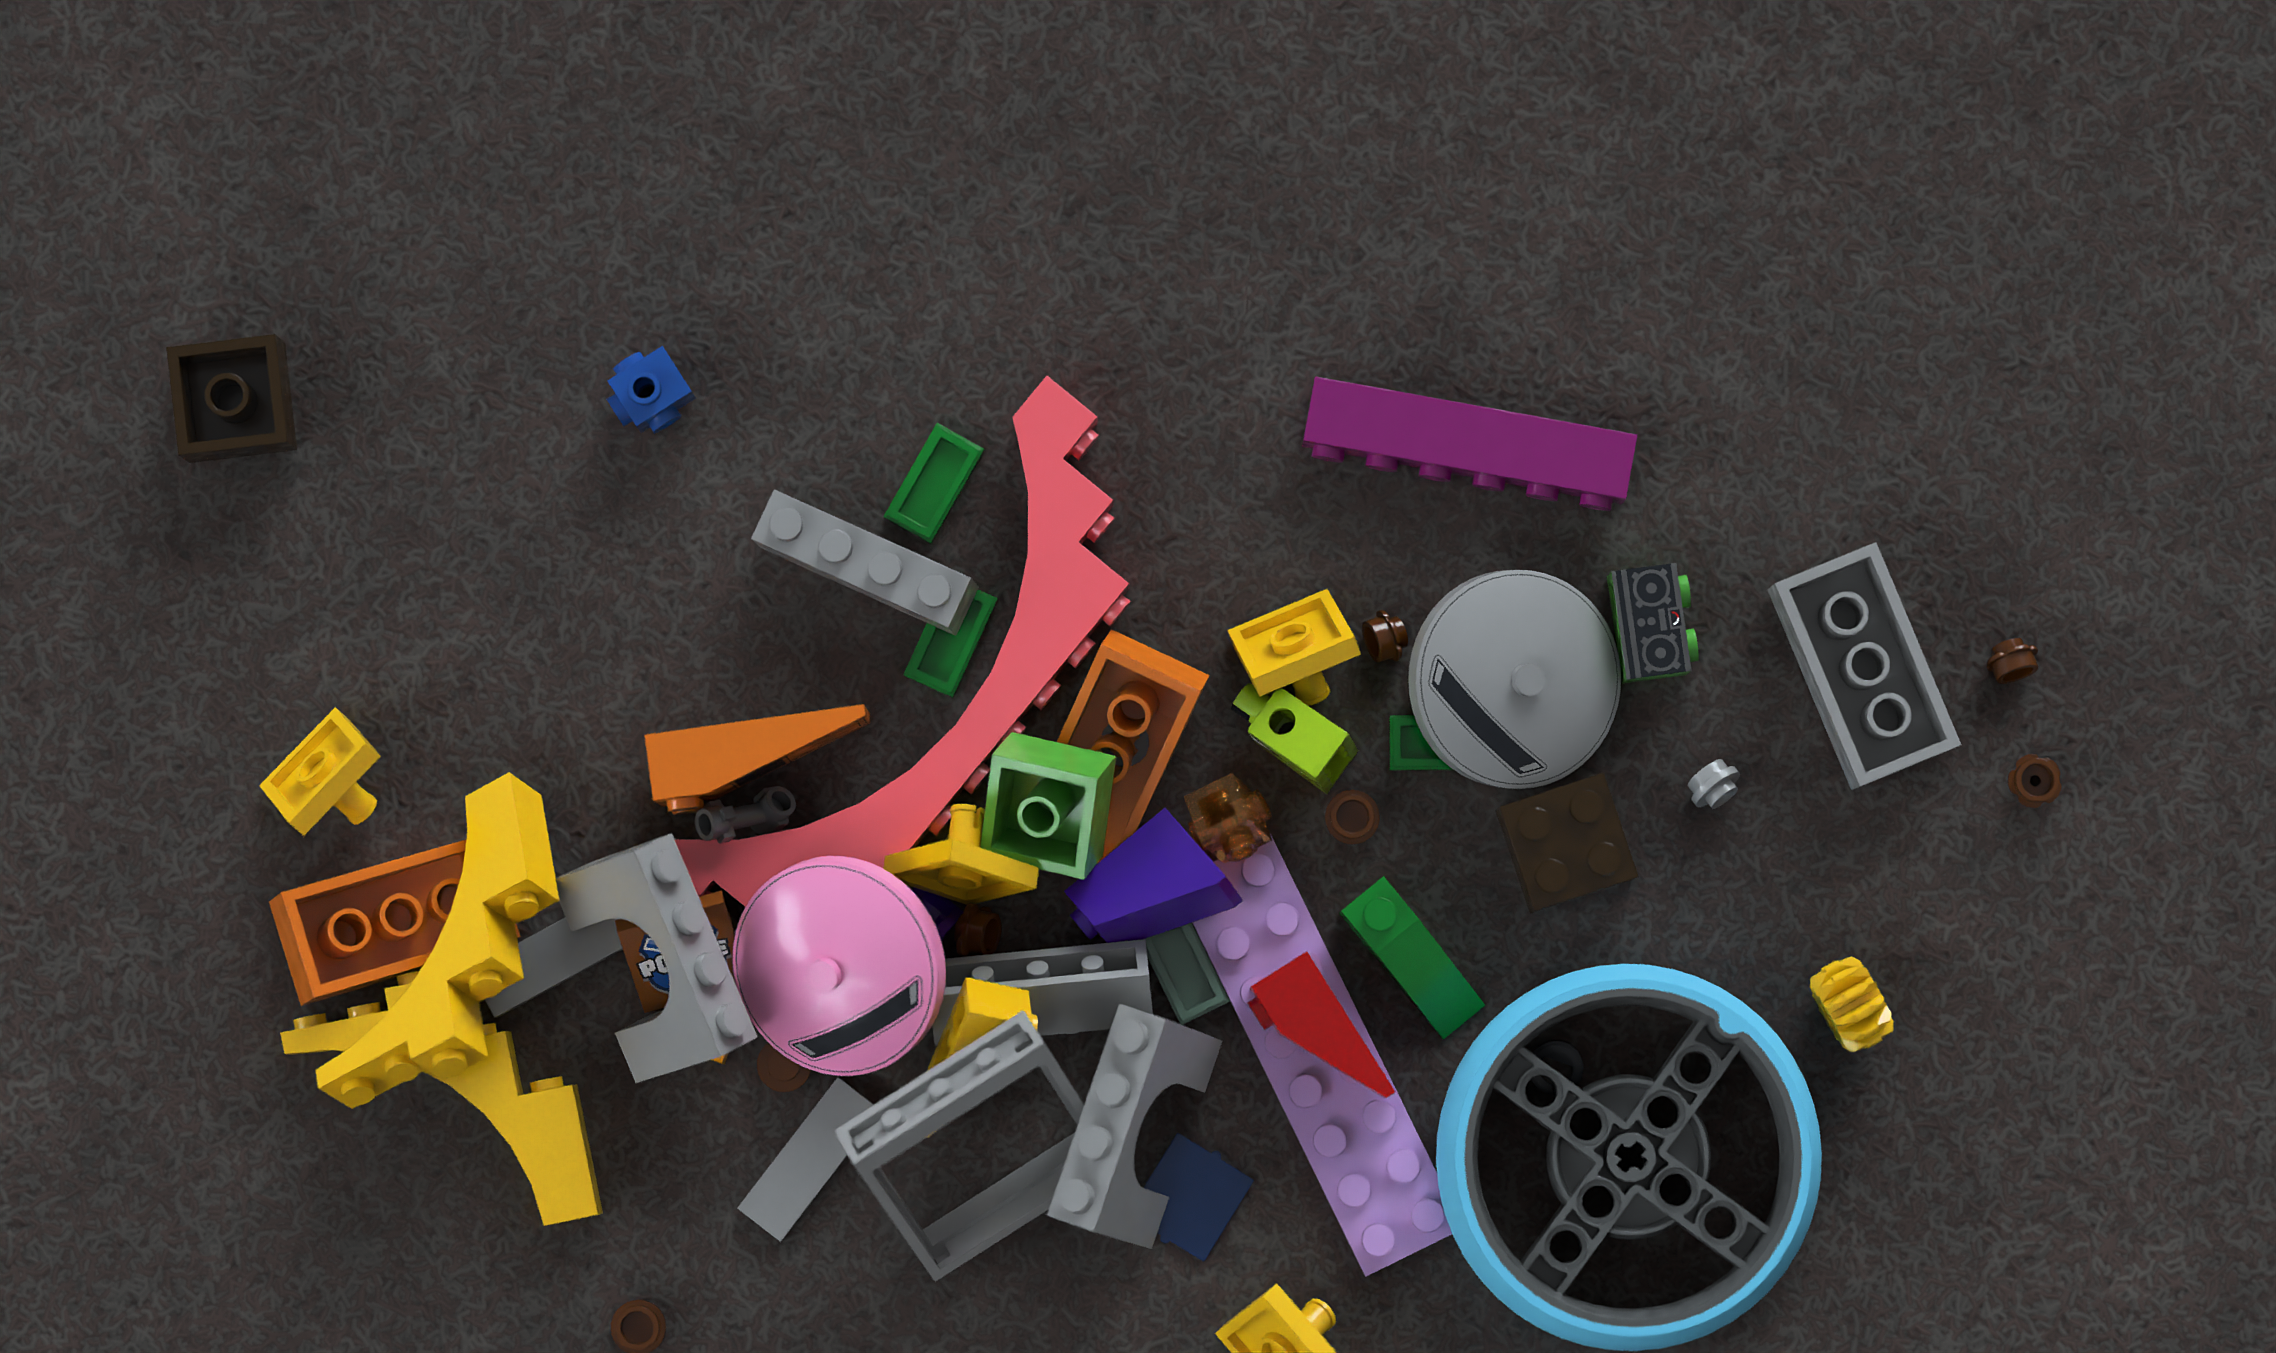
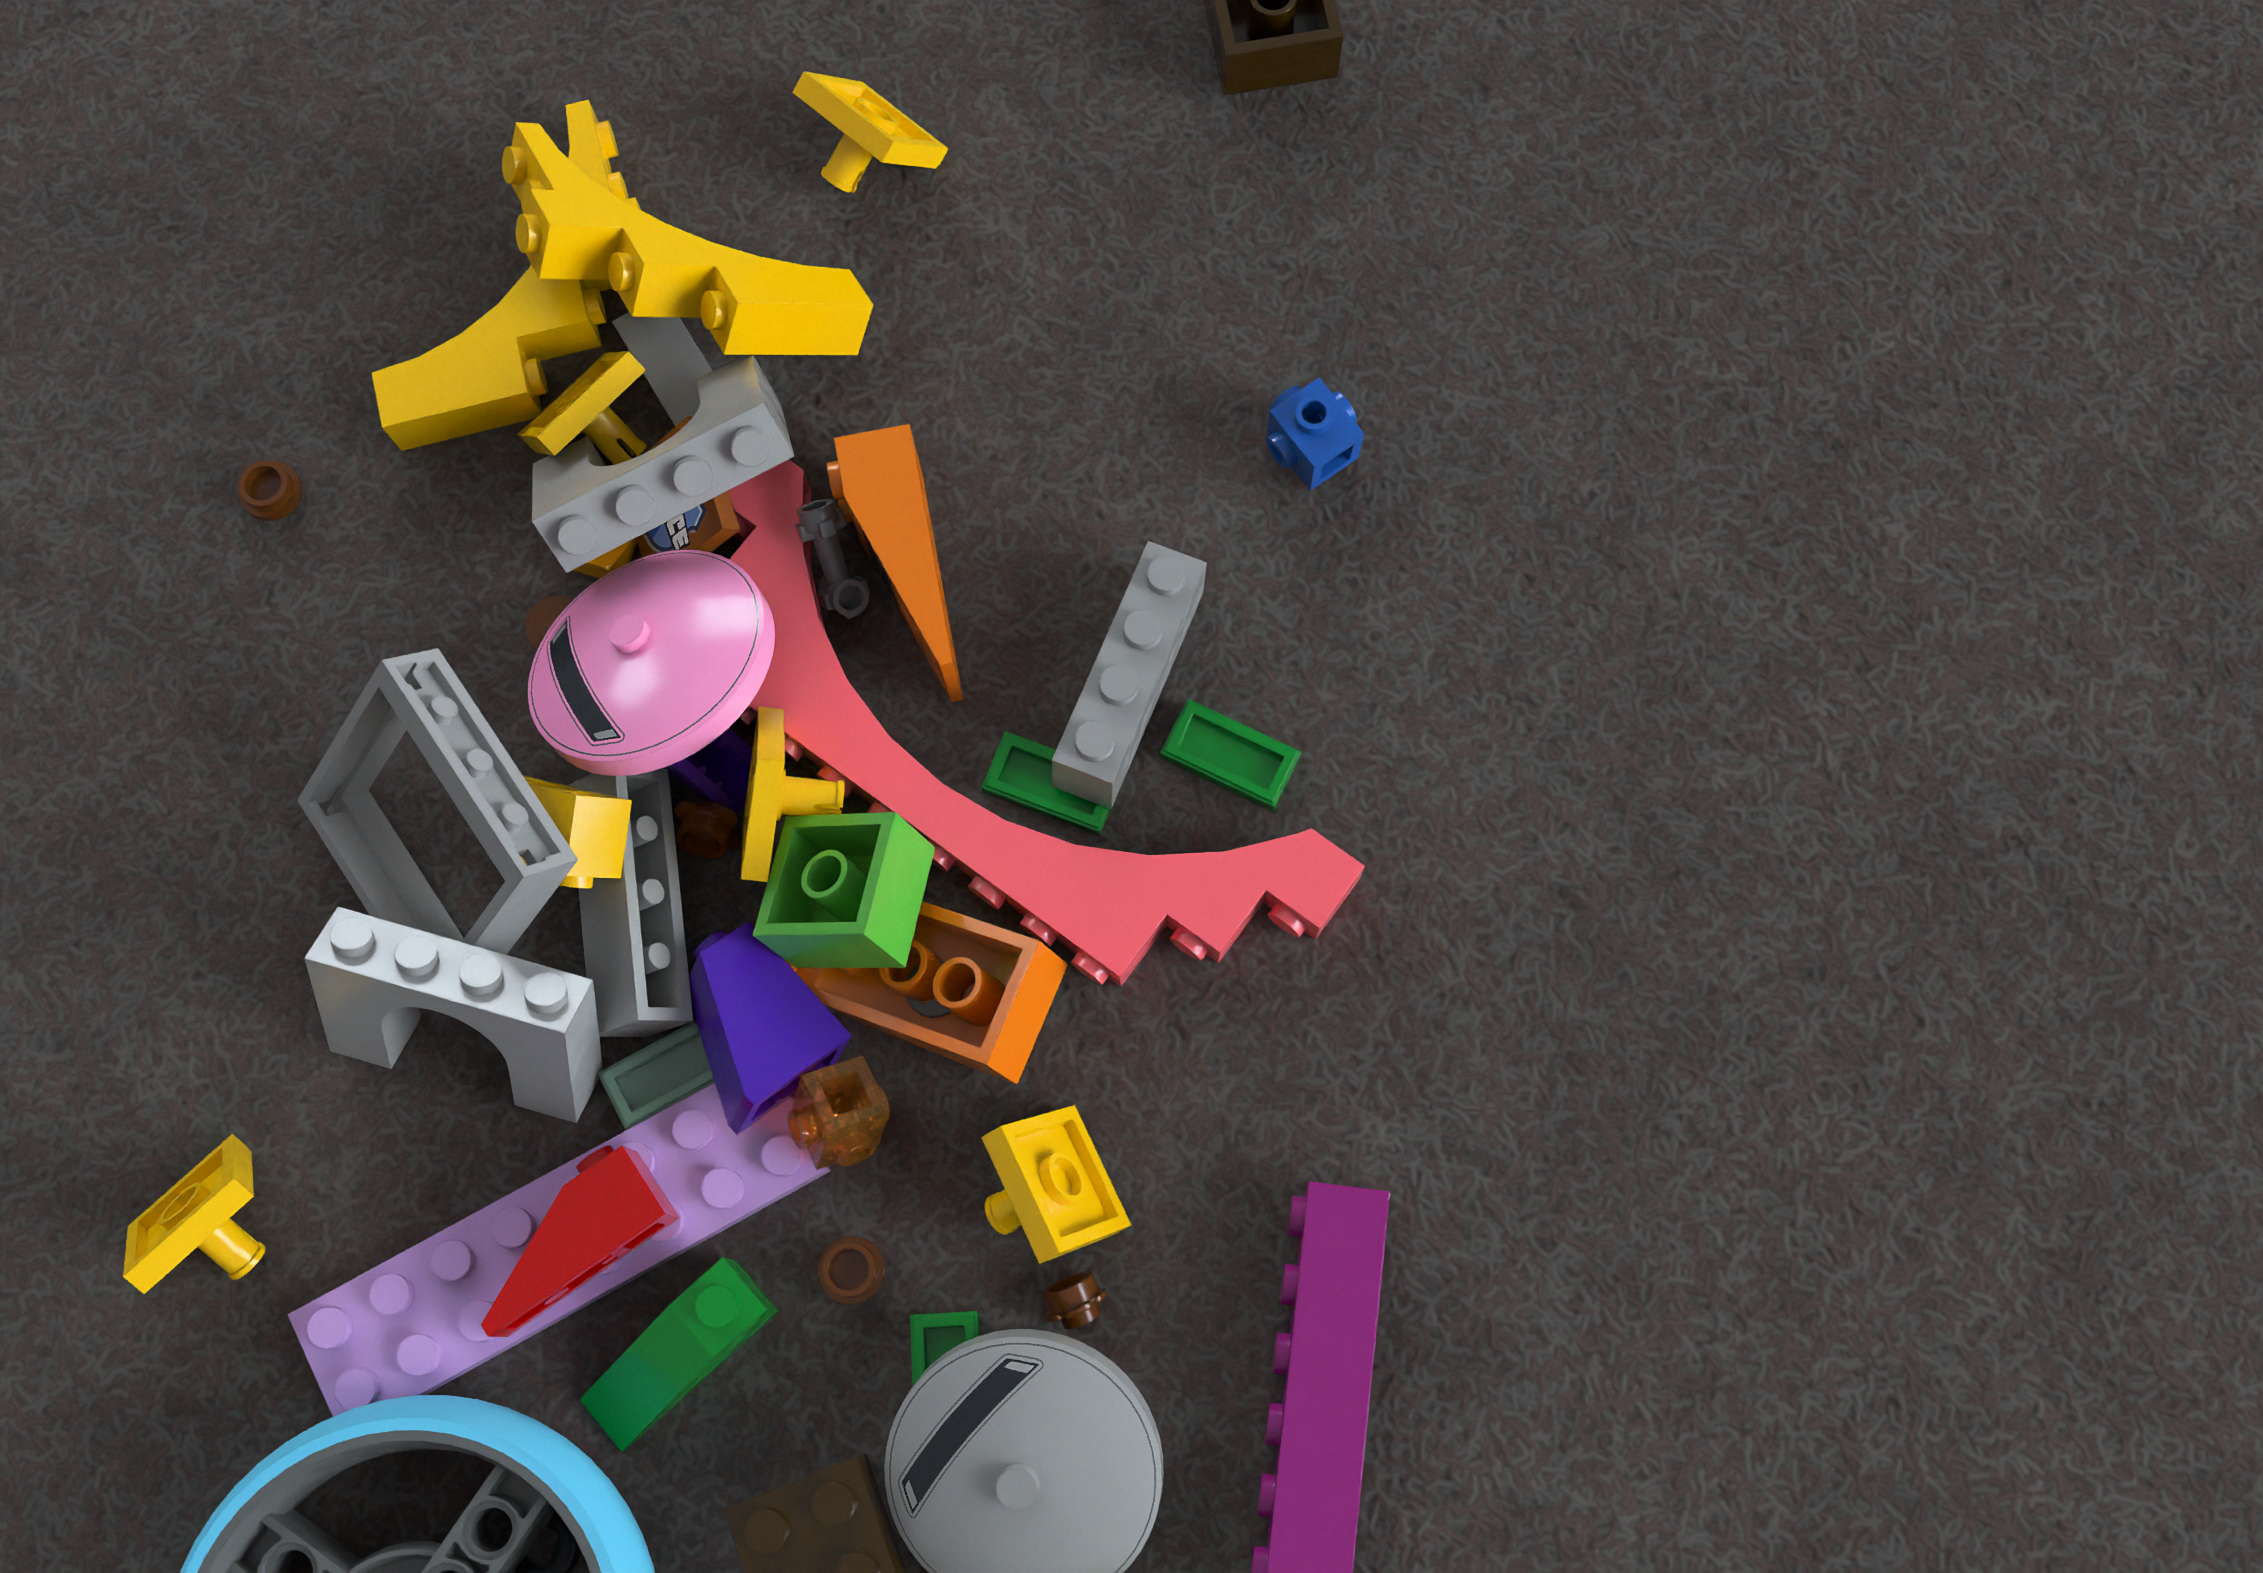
camera: 90 degrees right, 10 degrees down
(367, 922) = (707, 173): orange slope -> none
(587, 1034) = (586, 409): none -> yellow tile
(804, 1162) = (409, 626): light grey tile -> none
(1200, 1194) = (399, 1107): dark blue piece -> none
(1314, 745) = (930, 1216): lime torso -> none

